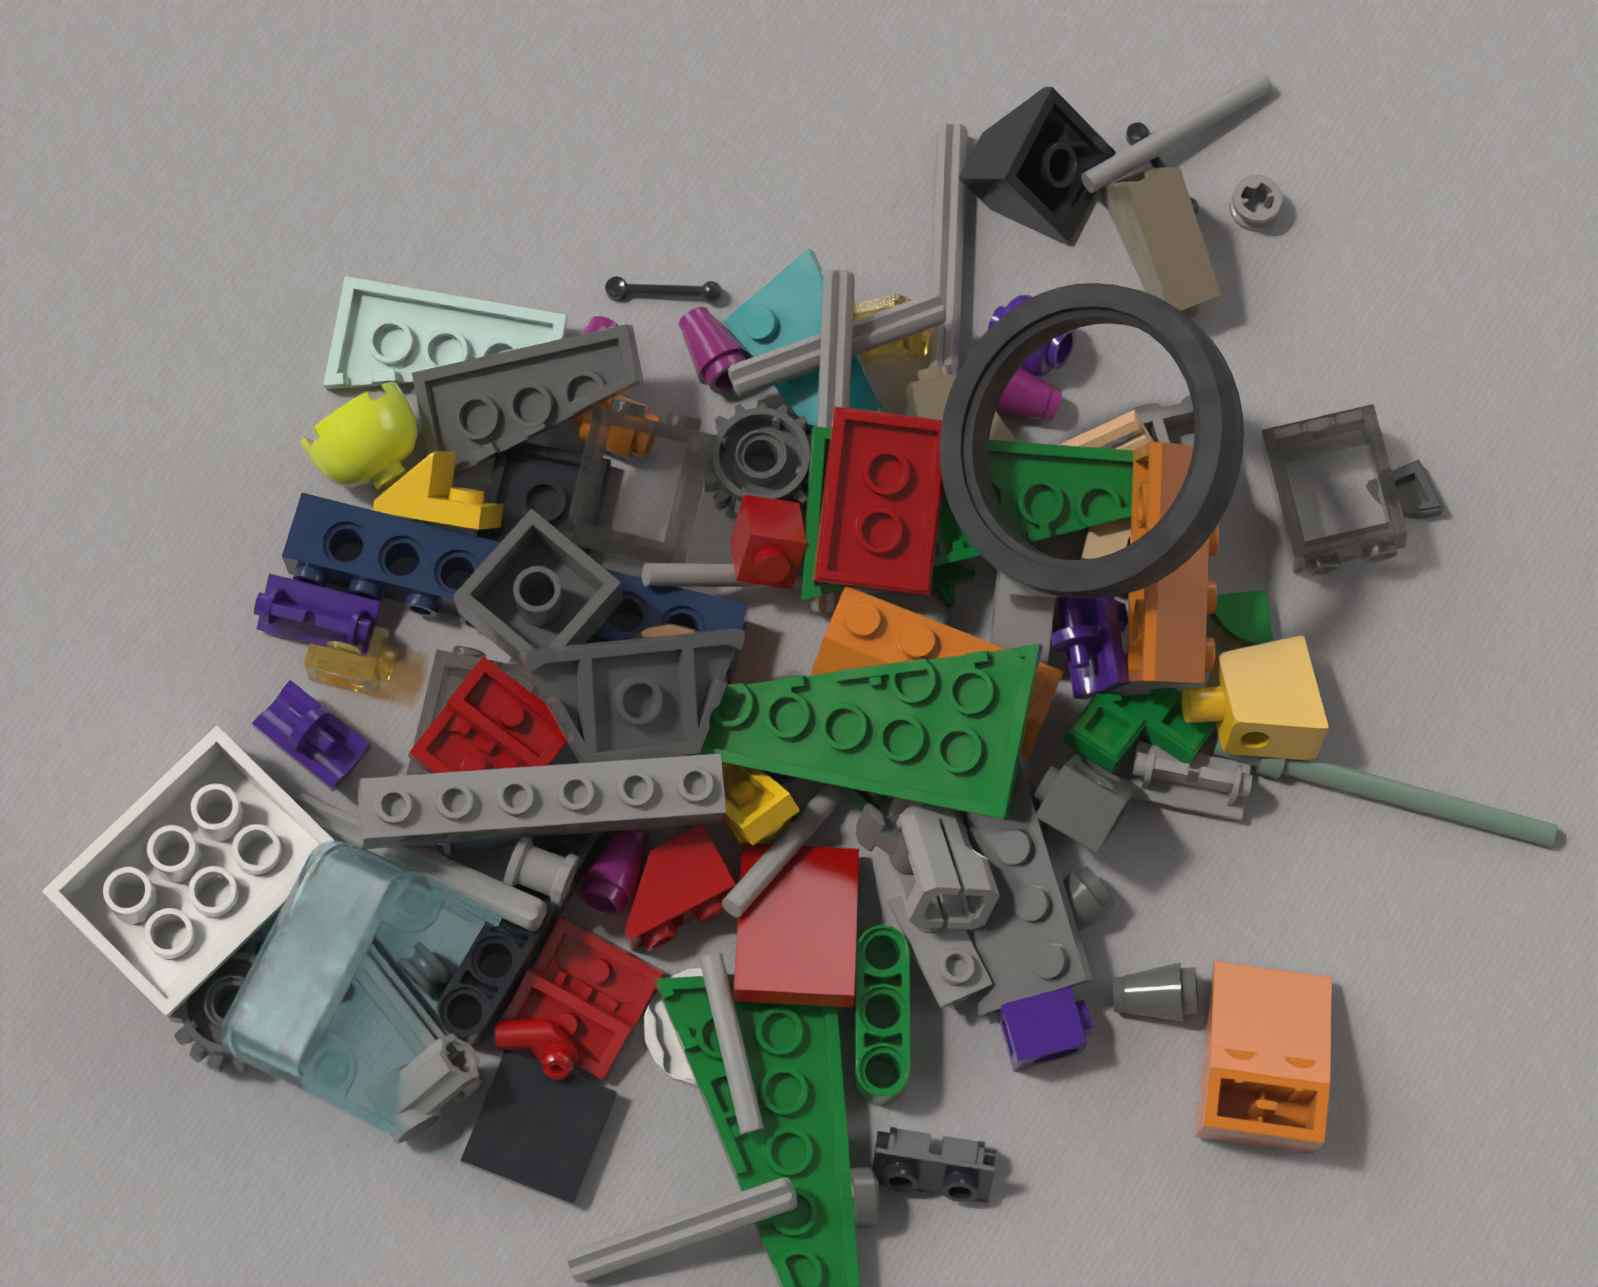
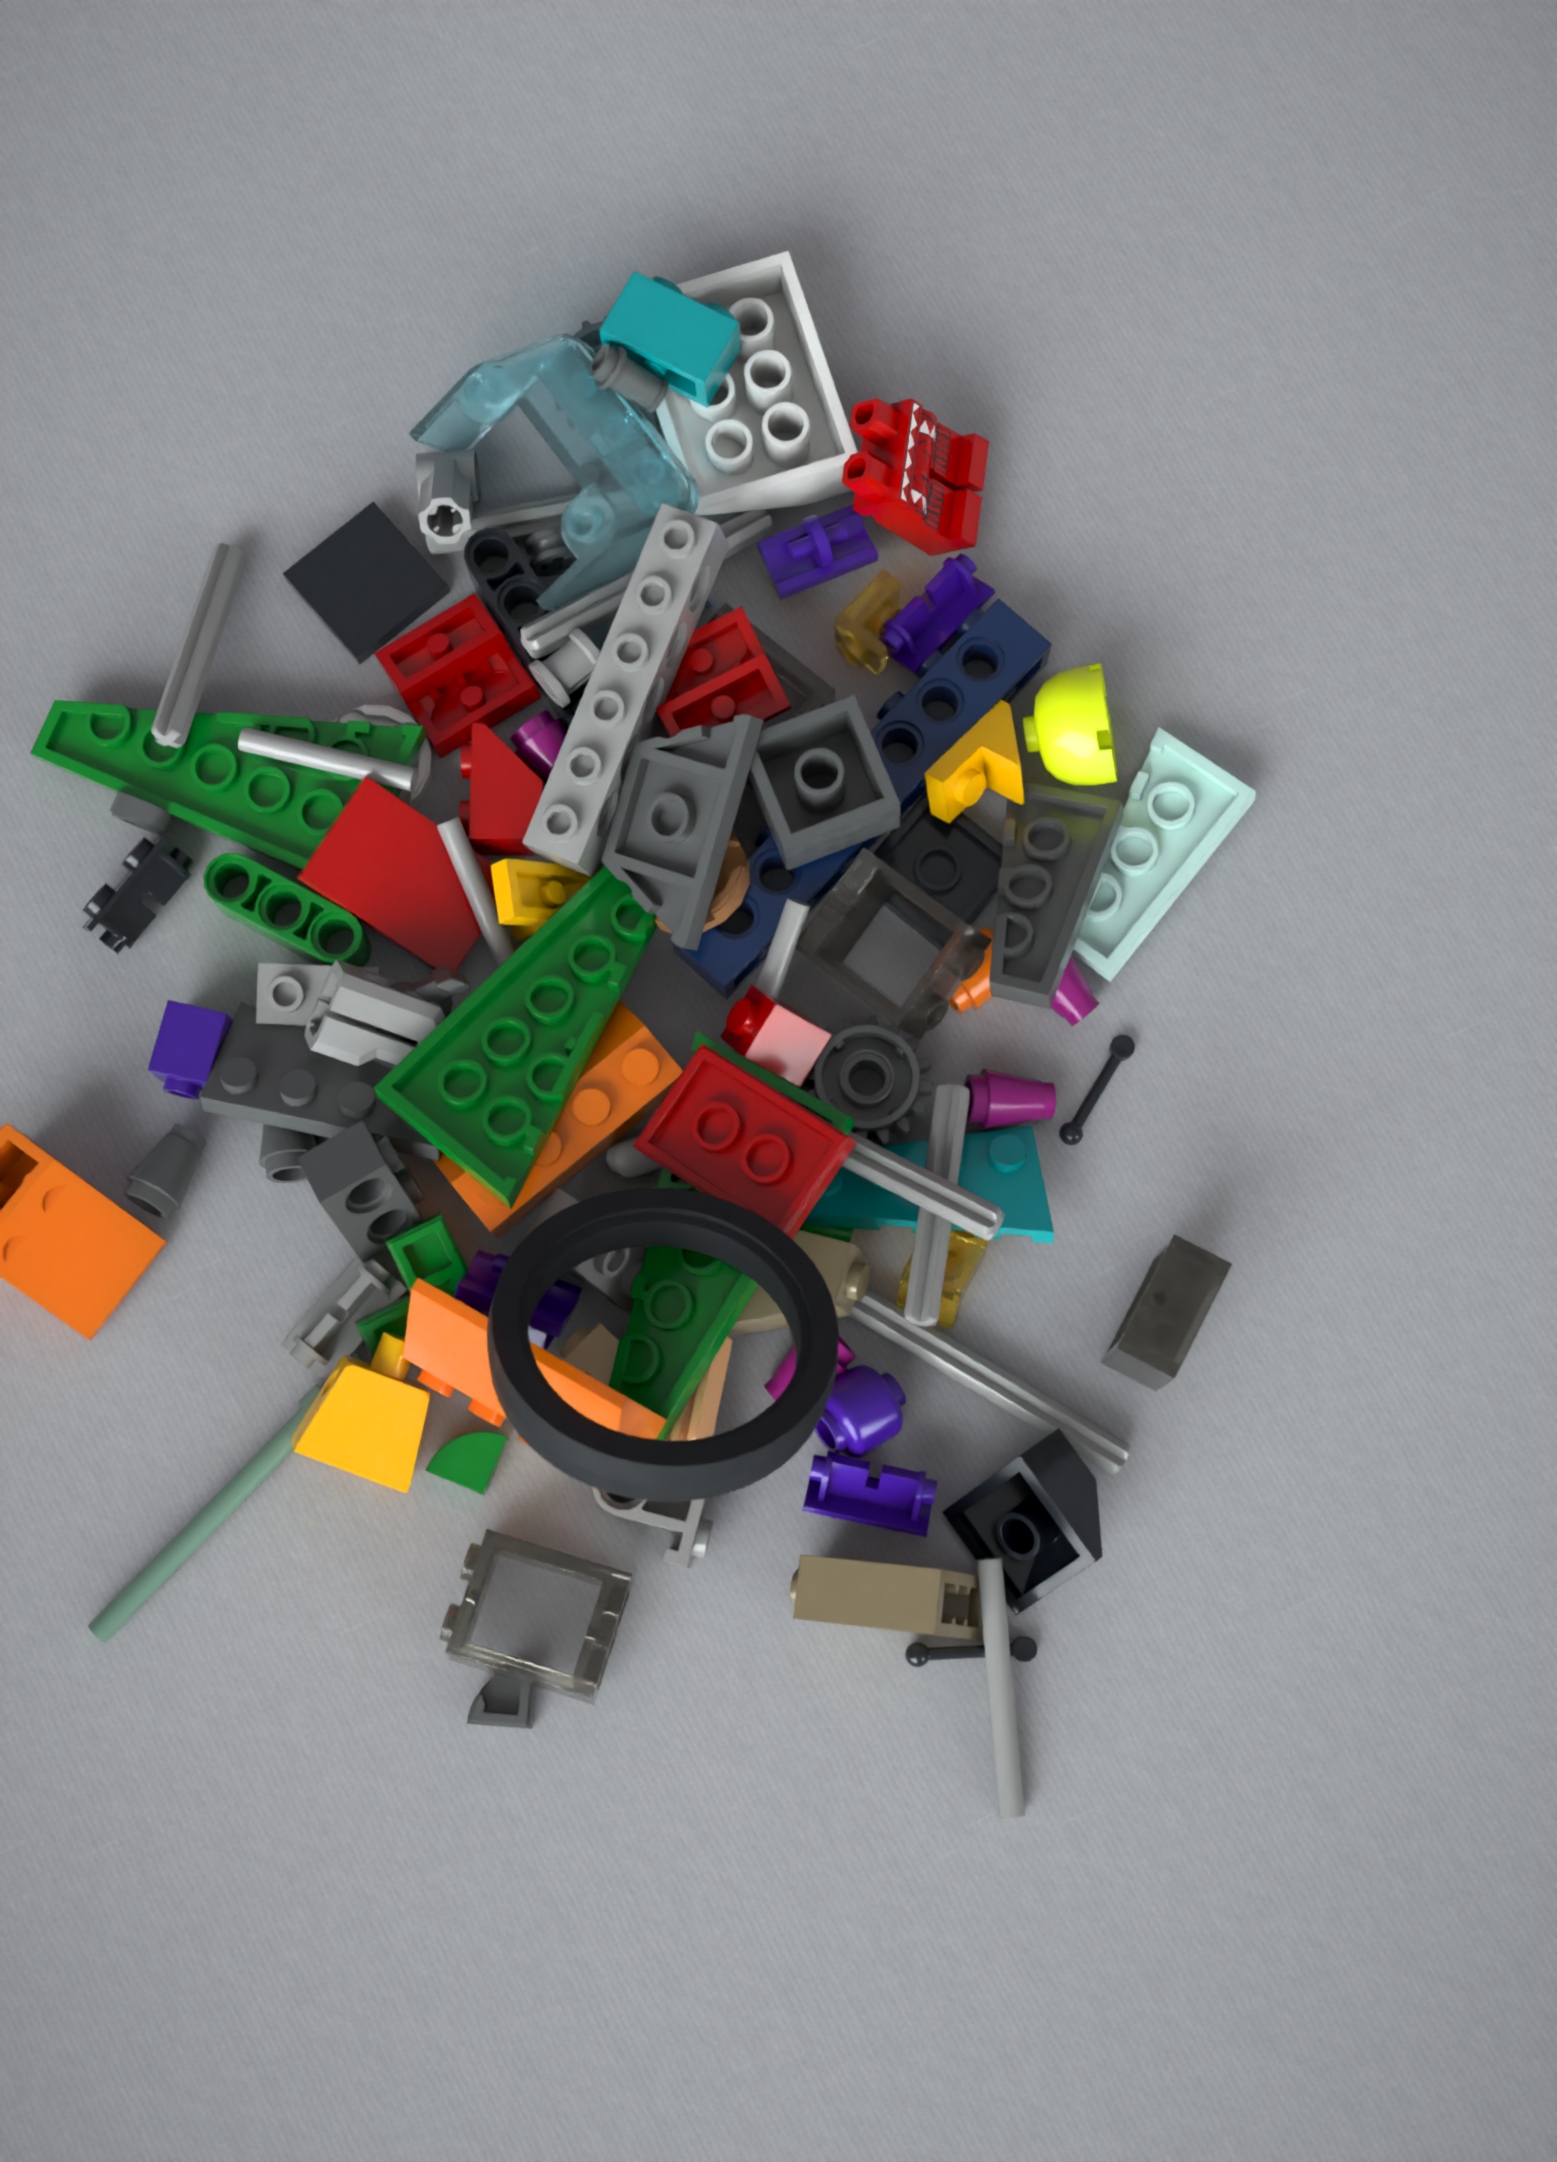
camera: 125 degrees right, 5 degrees up
(187, 935) = (674, 336): none -> teal brick
(207, 691) = (916, 475): none -> red hips
(248, 961) = (627, 378): none -> dark grey pin
(545, 1041) = (433, 616): red arm -> none
(806, 141) = (1166, 1313): none -> clear smoke window
(1089, 264) = (844, 1491): none -> dark purple hinge
(1248, 188) = (904, 1729): light grey bush -> none

